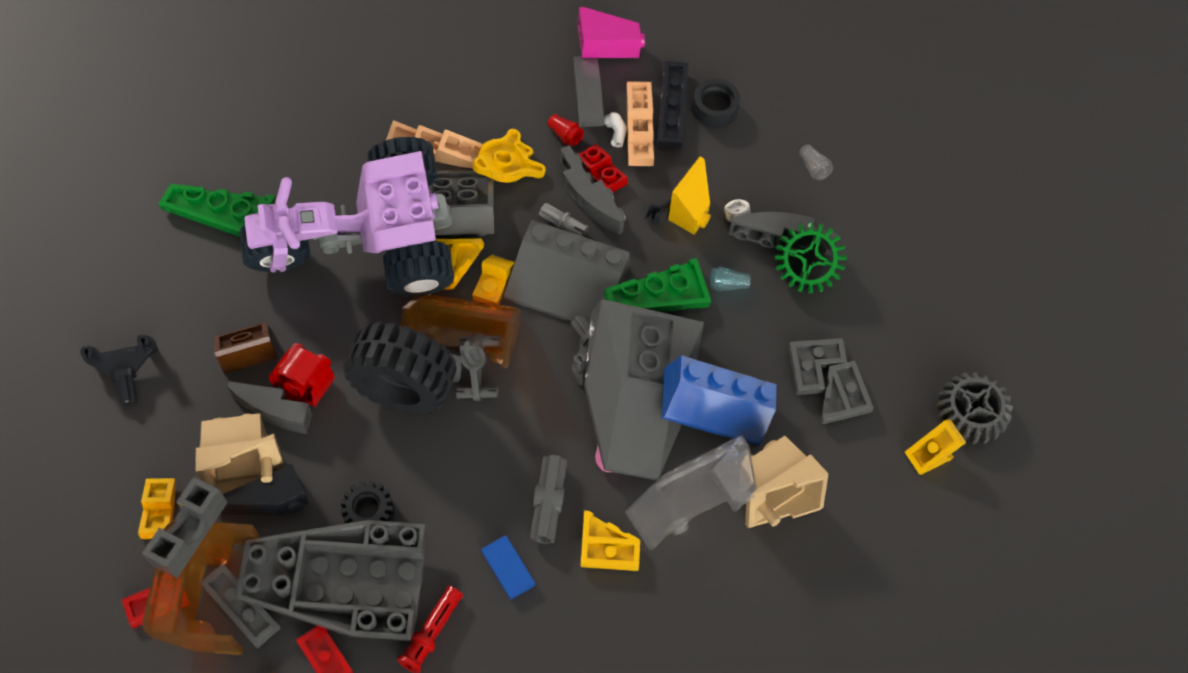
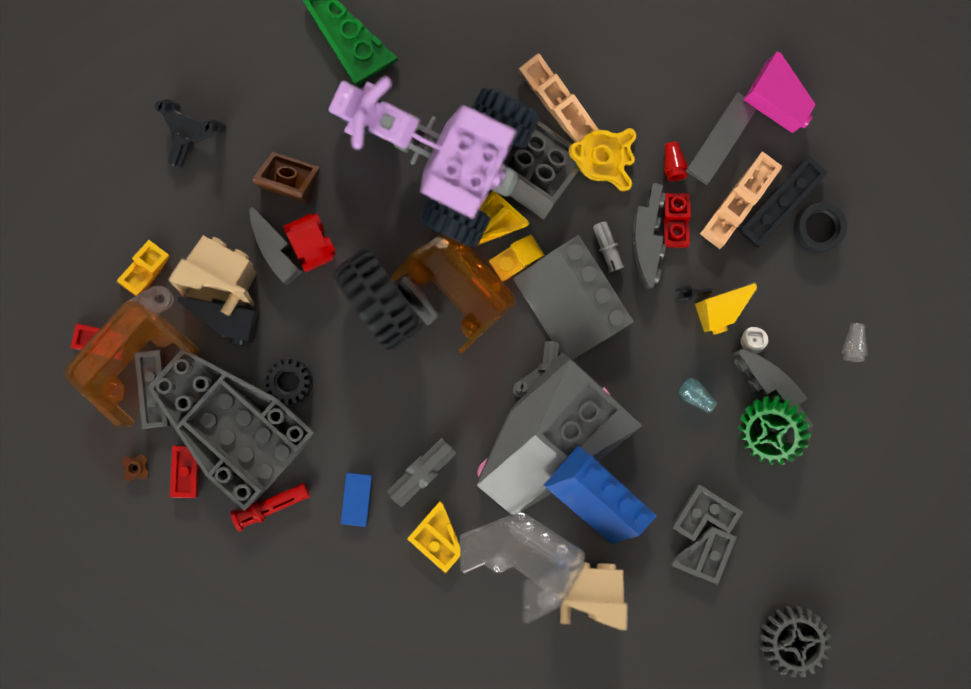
camera: 40 degrees right, 25 degrees up
(199, 509) = (118, 329): dark grey arch -> none
(474, 359) = (444, 325): dark grey axle -> none
(620, 129) = (721, 191): white arm -> none
(669, 290) = (640, 371): green wing -> none
(935, 447) = (736, 649): yellow slope -> none

